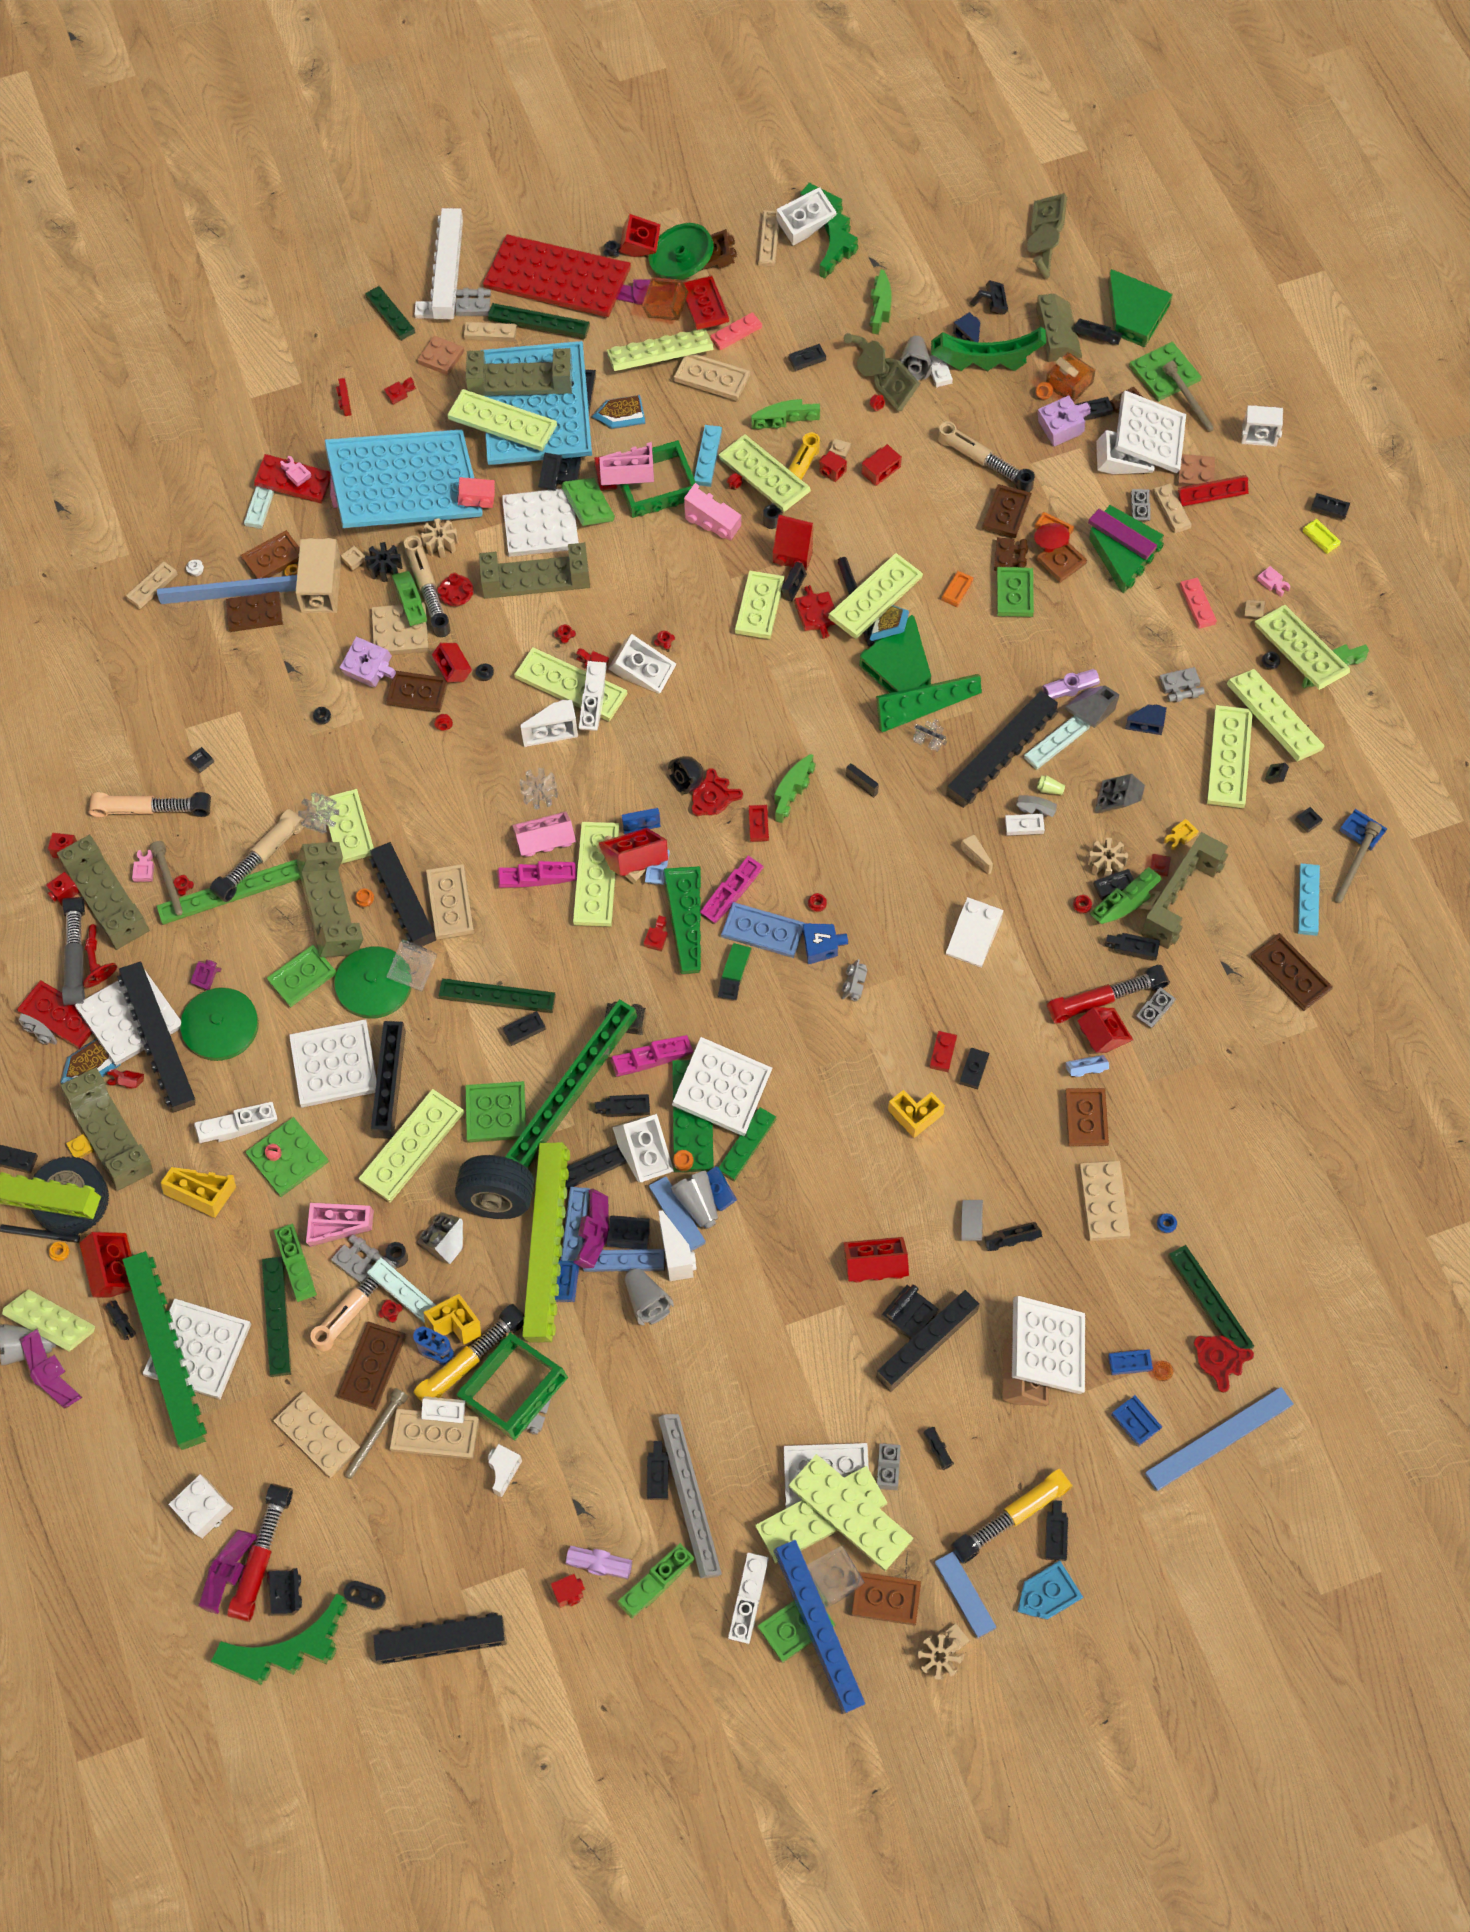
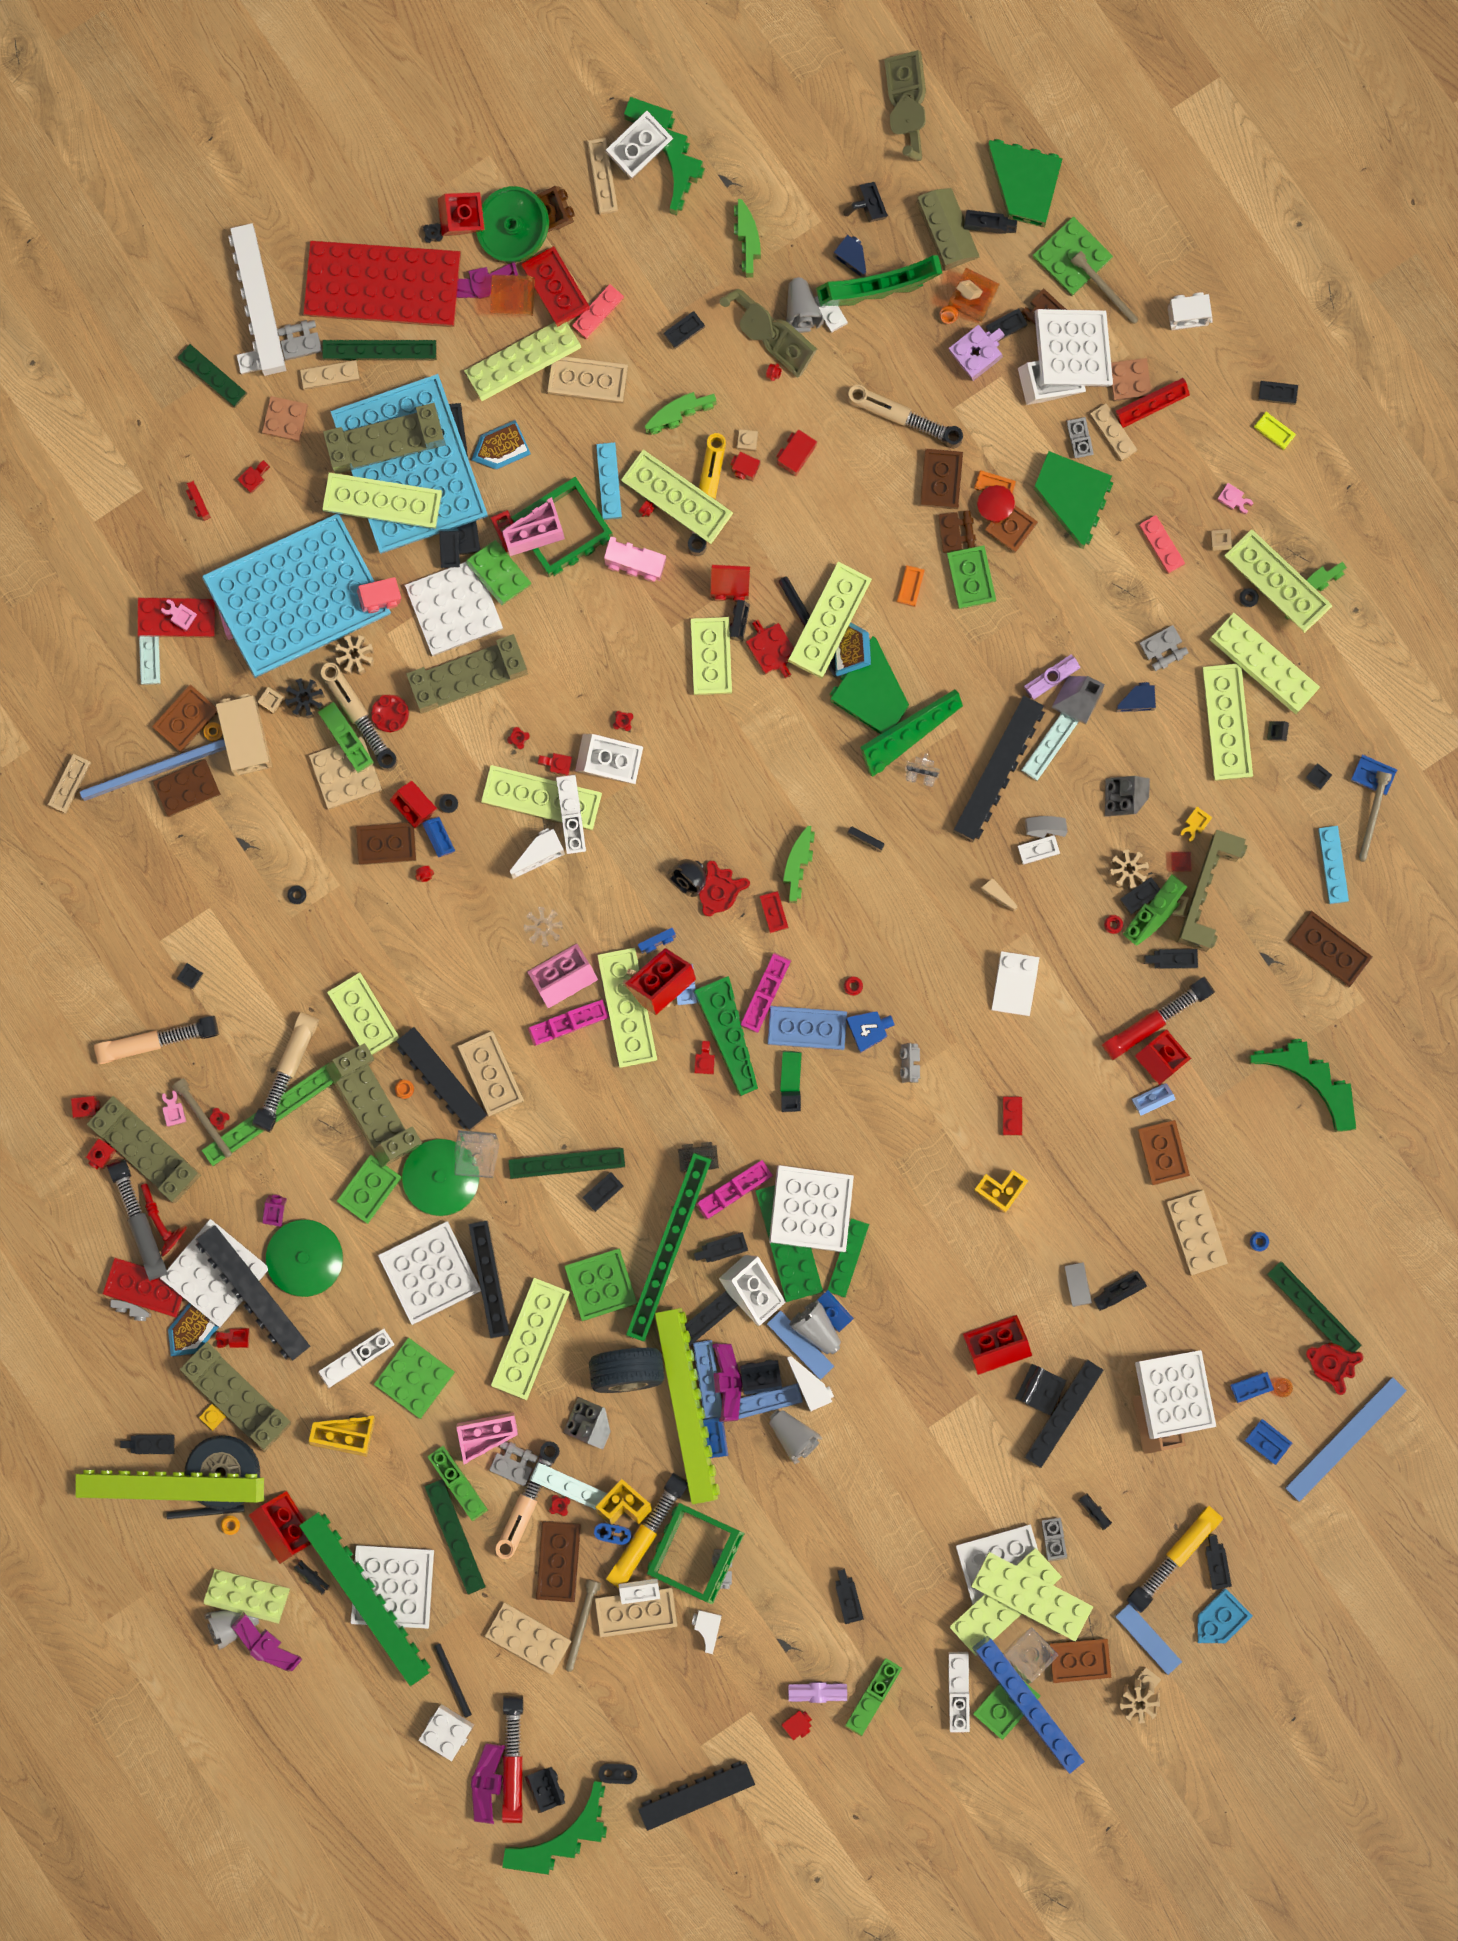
camera: 15 degrees left, 20 degrees up
(195, 571) = (107, 755): white plate -> none
(226, 1457) = (452, 1680): none -> black bar
(273, 1155) = (402, 1384): coral hinge -> none
(318, 812) = (332, 1012): clear gear -> none
(367, 662) = (337, 822): lavender hinge -> none
(466, 695) = (438, 837): none -> blue plate
(683, 1160) = (793, 1293): orange tile -> none
(689, 1496) = (882, 1611): light grey plate -> none
(974, 1068) = (1046, 1126): black plate -> none
(1049, 785) = (1054, 799): yellowish green cone -> none
(1122, 534) = (1069, 487): magenta tile -> none
(1156, 1007) = (1207, 1020): light grey slope -> none
(1256, 1079) = (1296, 1060): none -> green arch

